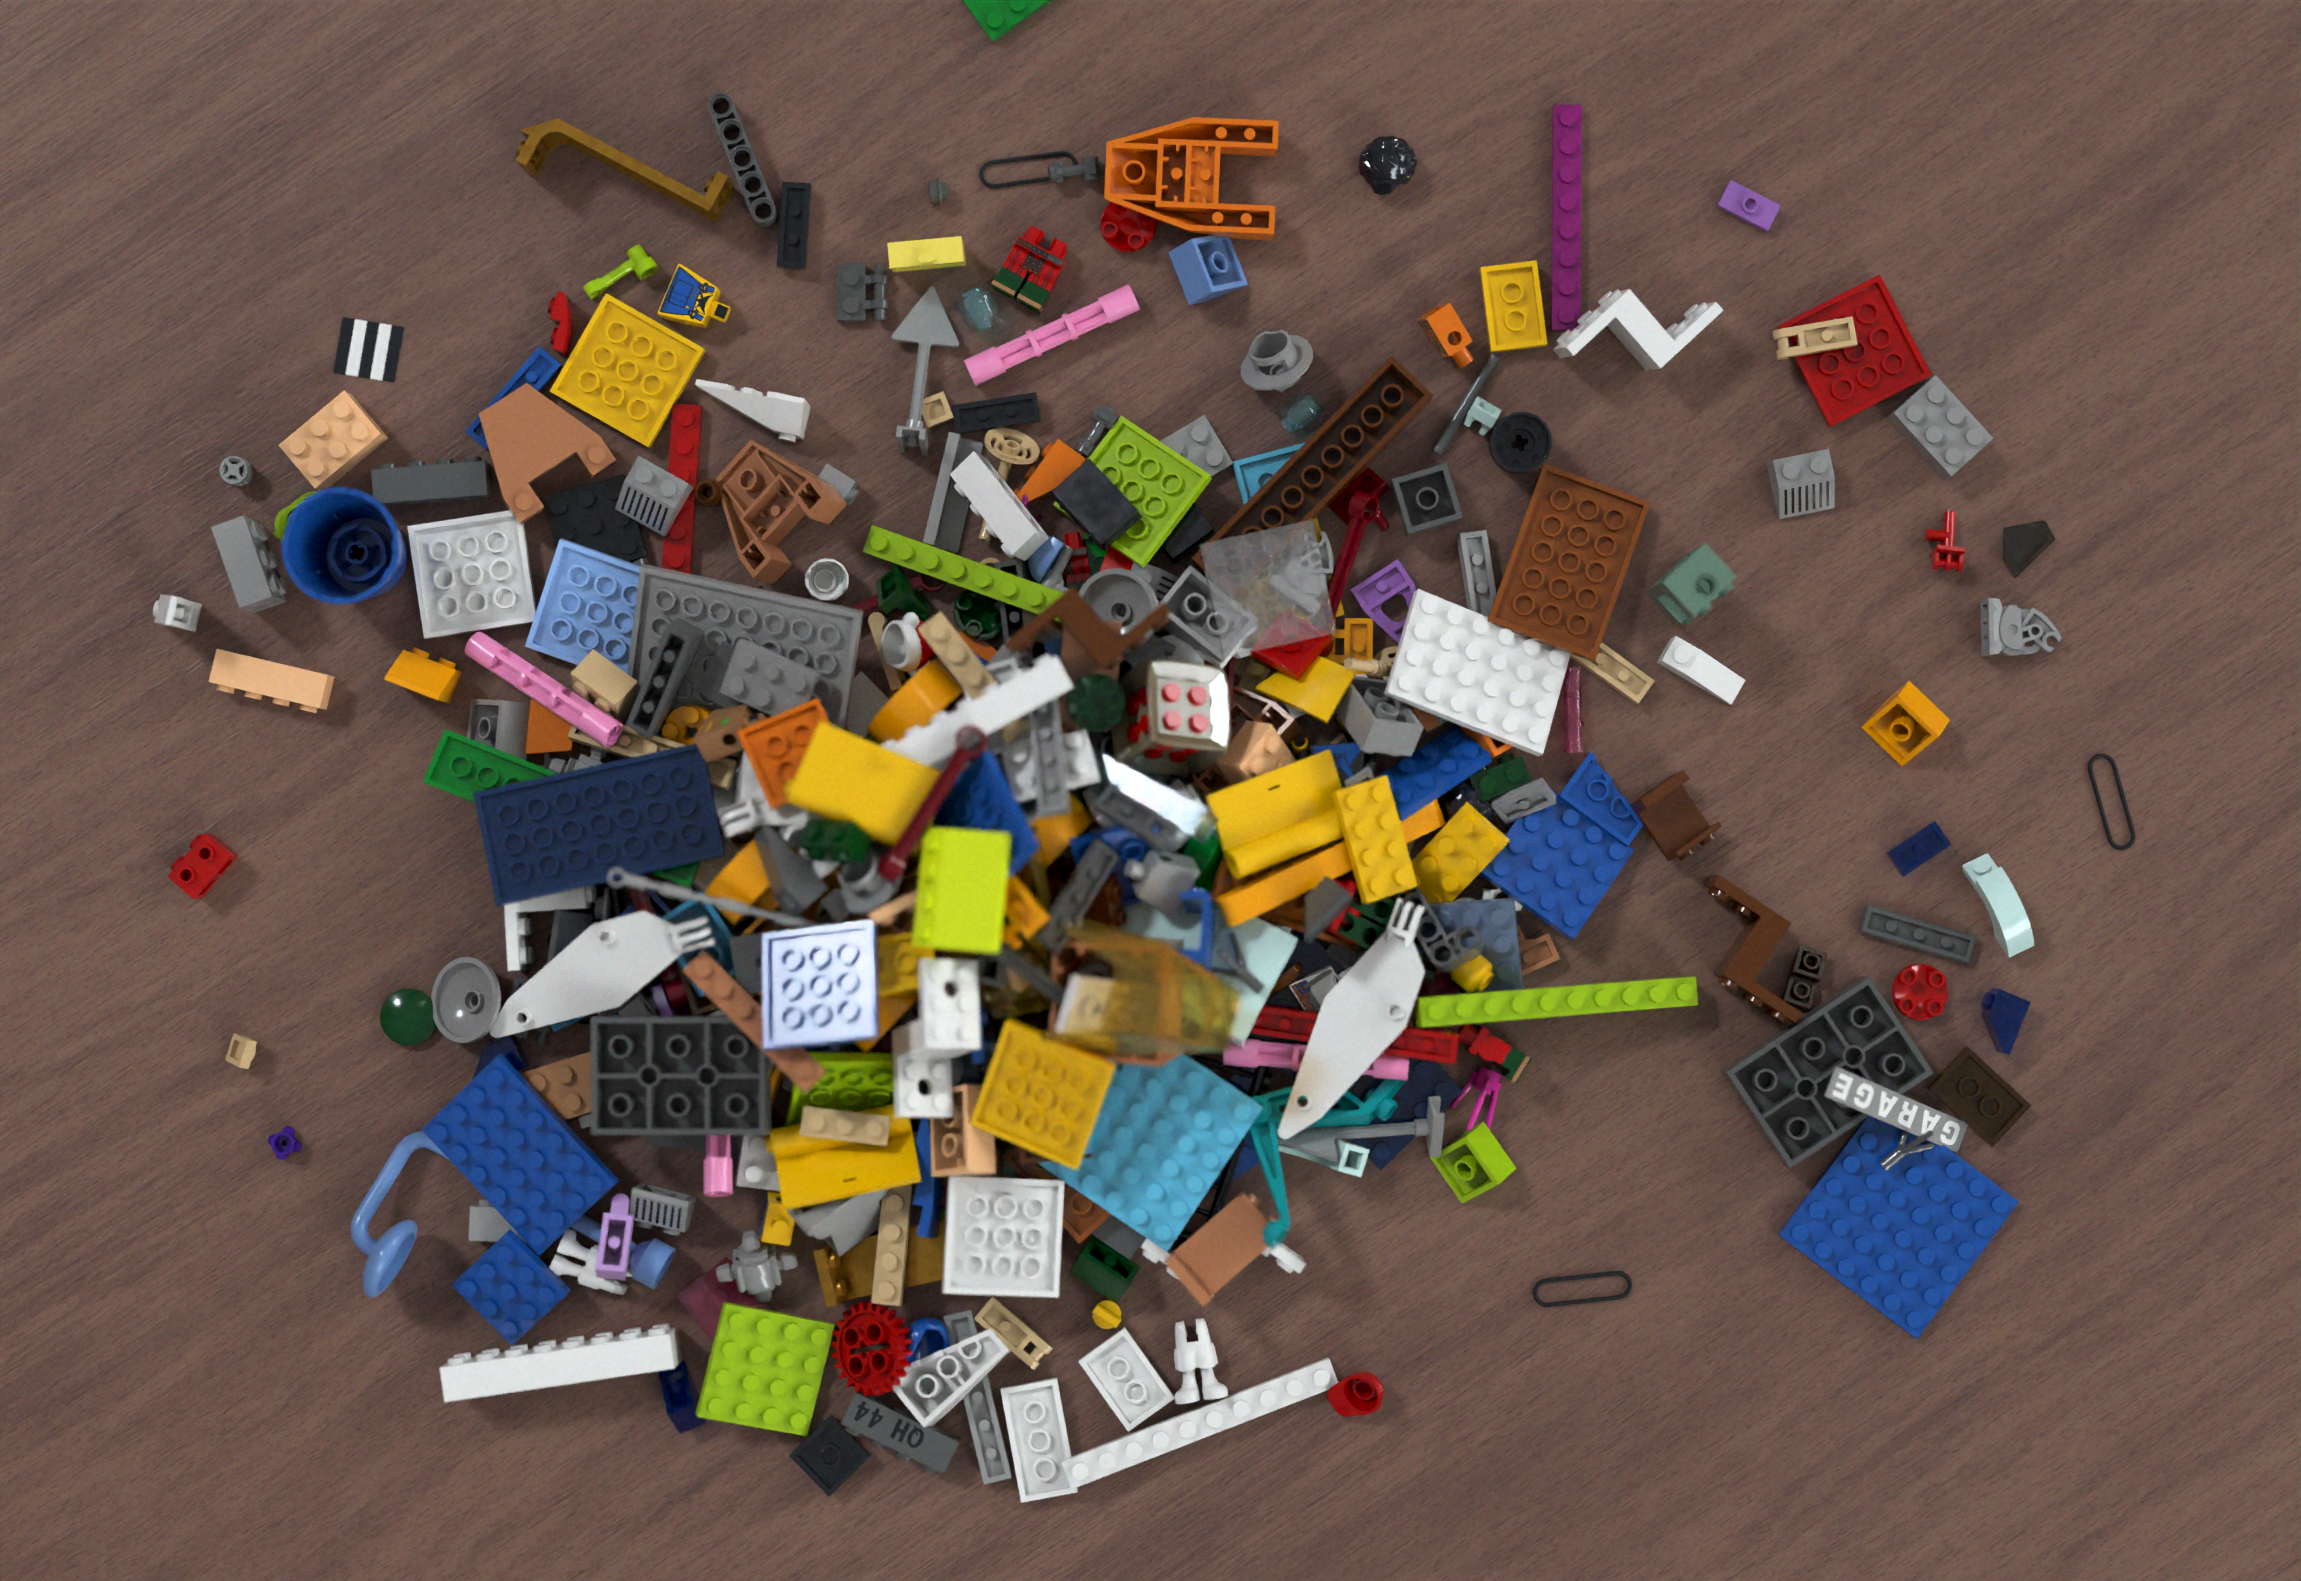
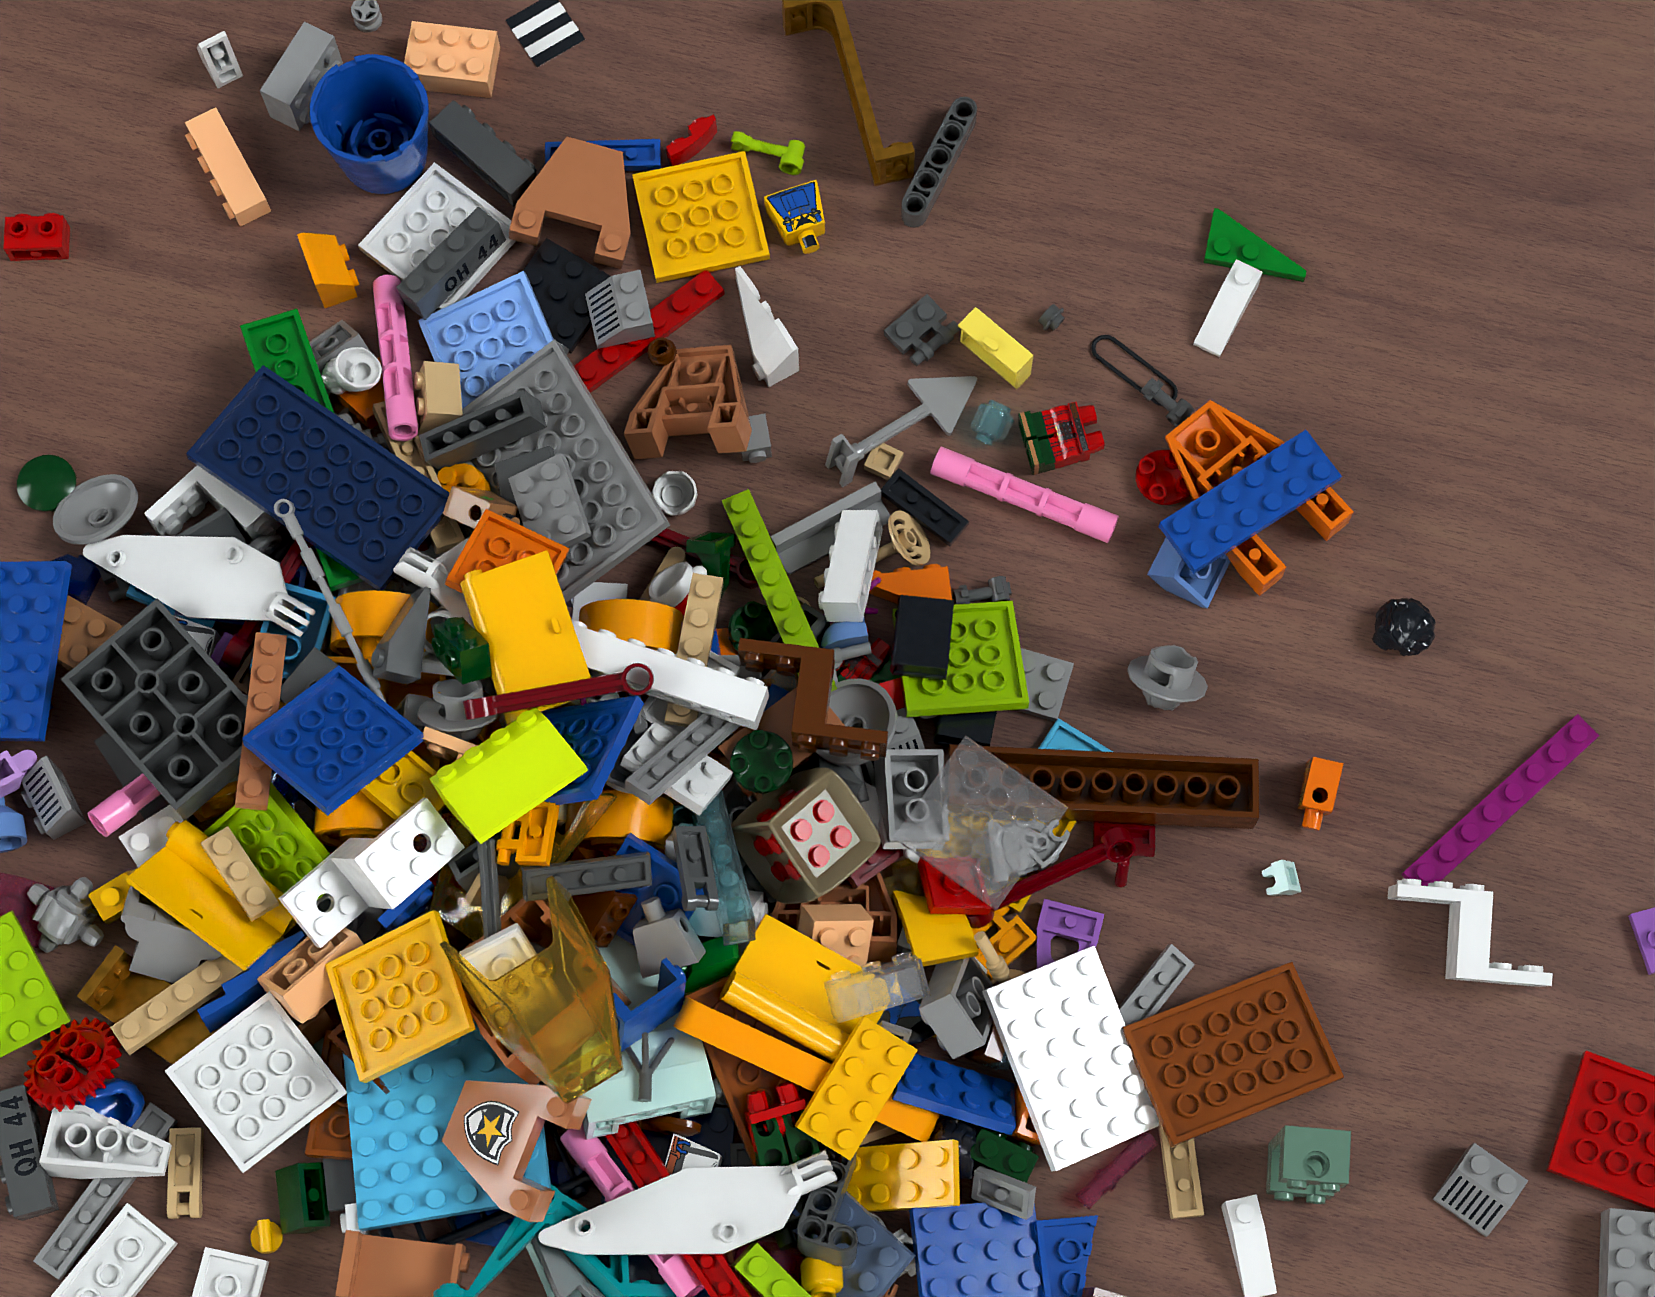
camera: 50 degrees right, 15 degrees down
(505, 585) = (451, 263): none -> dark grey brick
(530, 729) = (352, 371): none -> white hair
(794, 225) = (925, 239): black plate -> none
(1045, 60) = (1228, 308): none -> white slope
(1192, 1110) = (497, 1133): none -> nougat wedge
(1207, 186) = (1249, 501): none -> blue plate
(1301, 413) = (1146, 735): clear light blue head -> none
(1321, 765) = (876, 987): none -> clear brick
(1323, 906) = (757, 1091): dark grey slope -> none
(1426, 500) = (1171, 892): dark grey brick -> none
(1465, 404) = (1266, 860): dark grey bar -> none
(1513, 306) = (1391, 825): yellow plate -> none
(1527, 428) = (1286, 907): black wheel -> none
(1816, 337) = (1605, 1087): tan plate -> none

